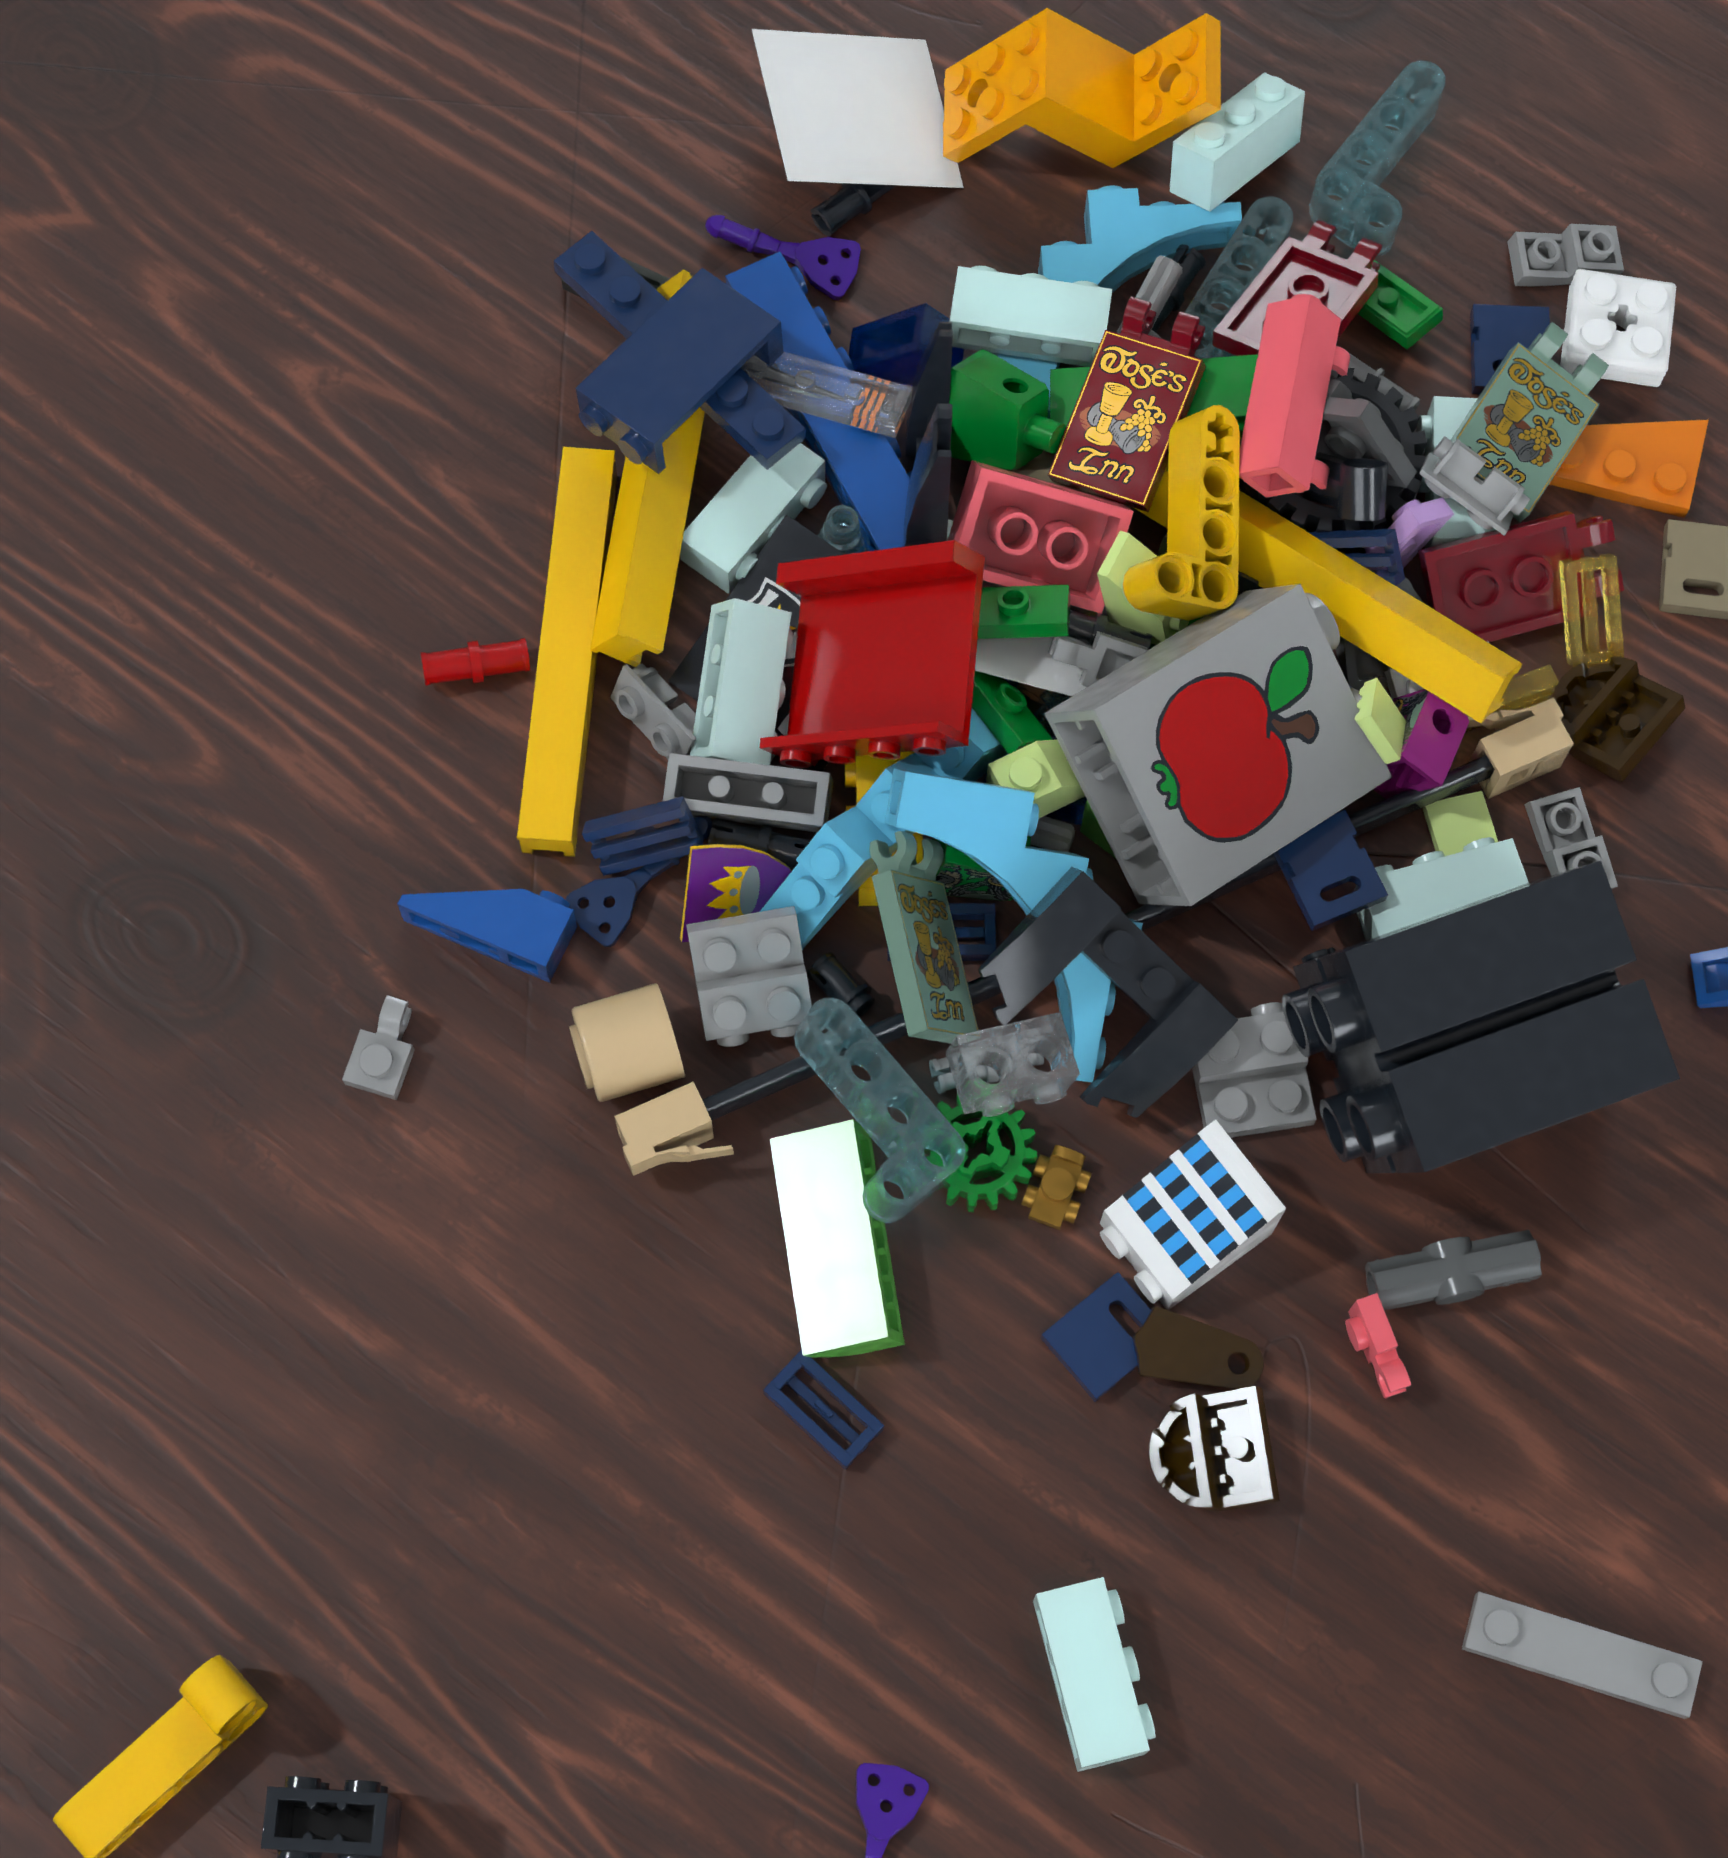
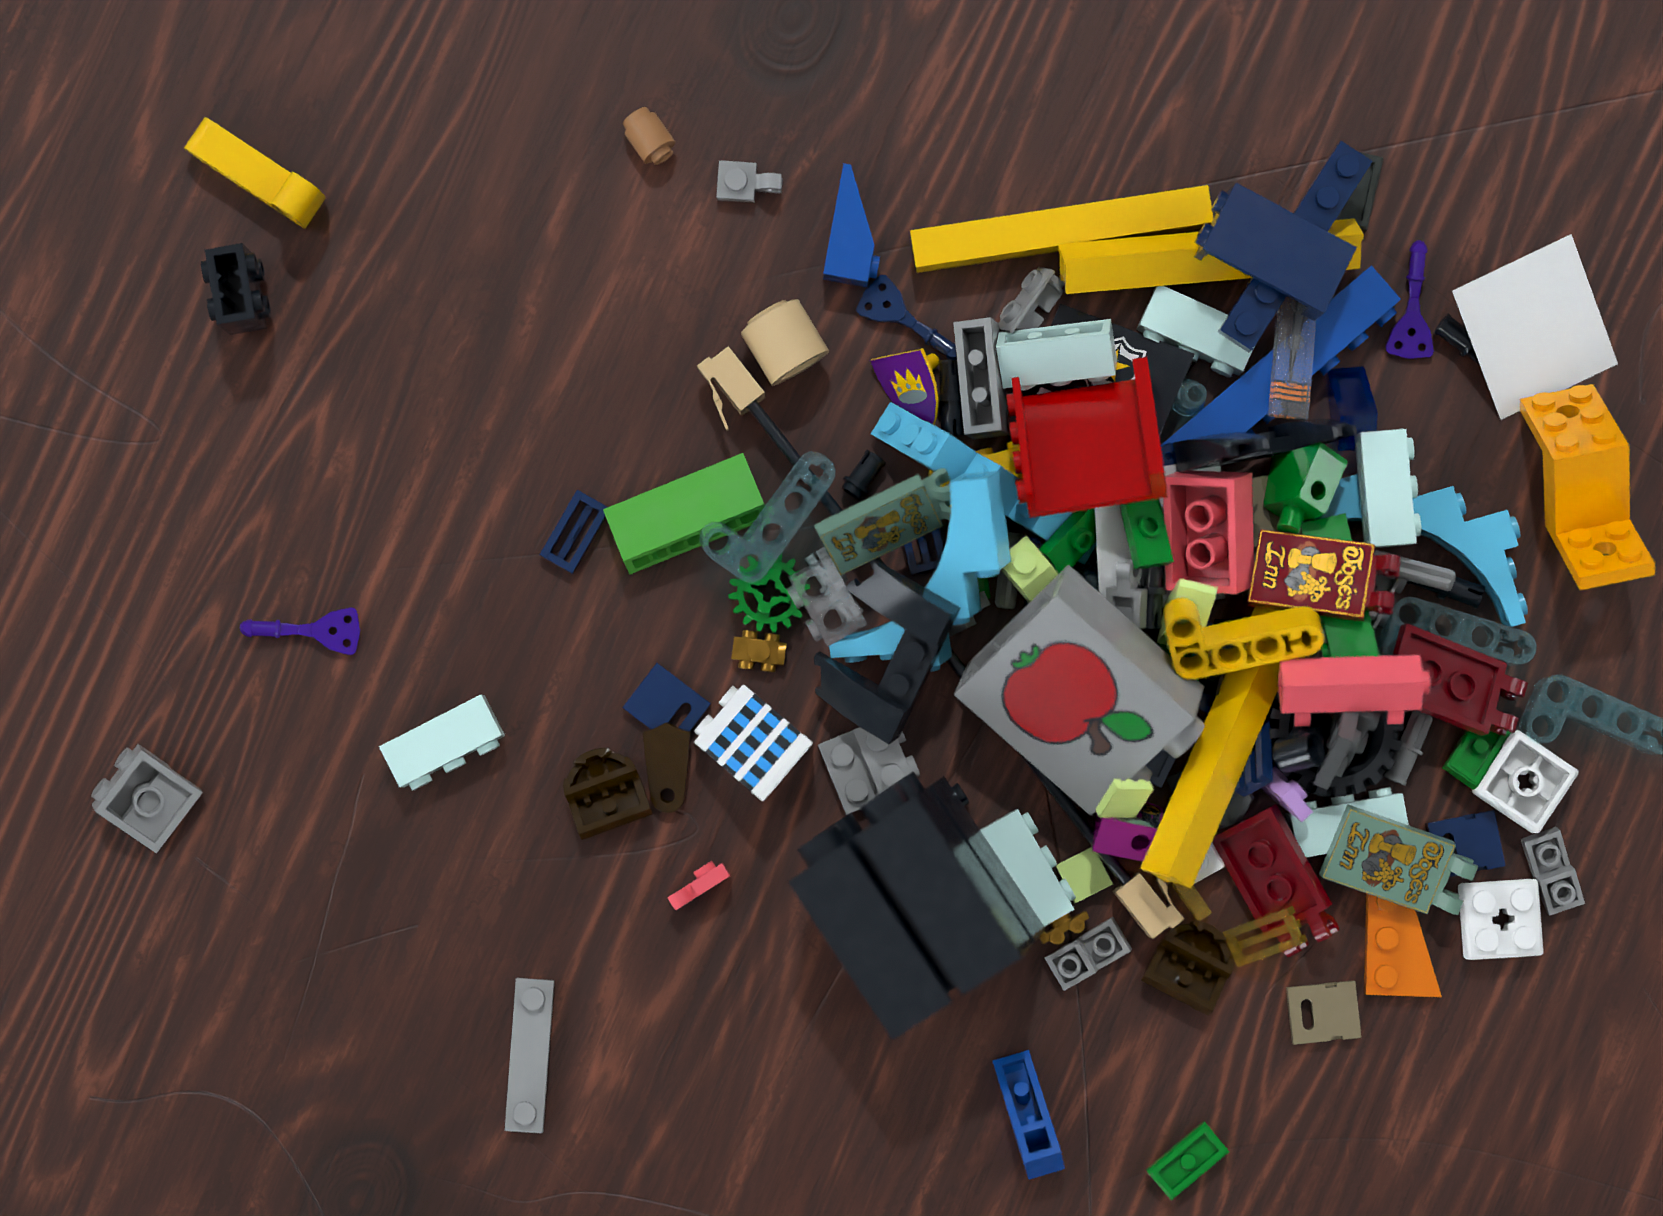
camera: 75 degrees right, 15 degrees up
(278, 1168) = (649, 136): none -> medium nougat brick
(475, 661) = (1037, 167): red pin -> none
(646, 844) = (933, 315): dark blue tile -> none
(749, 975) = (850, 412): light grey plate -> none
(1236, 141) = (1575, 613): light aqua brick -> none
(1325, 860) = (1022, 782): dark blue piece -> none
(1442, 229) = (1547, 772): none -> white brick
(1454, 1270) = (762, 925): dark grey piece -> none
(1487, 501) = (1331, 816): light grey hinge -> none
(1528, 847) = (1063, 924): none -> pearl gold piece

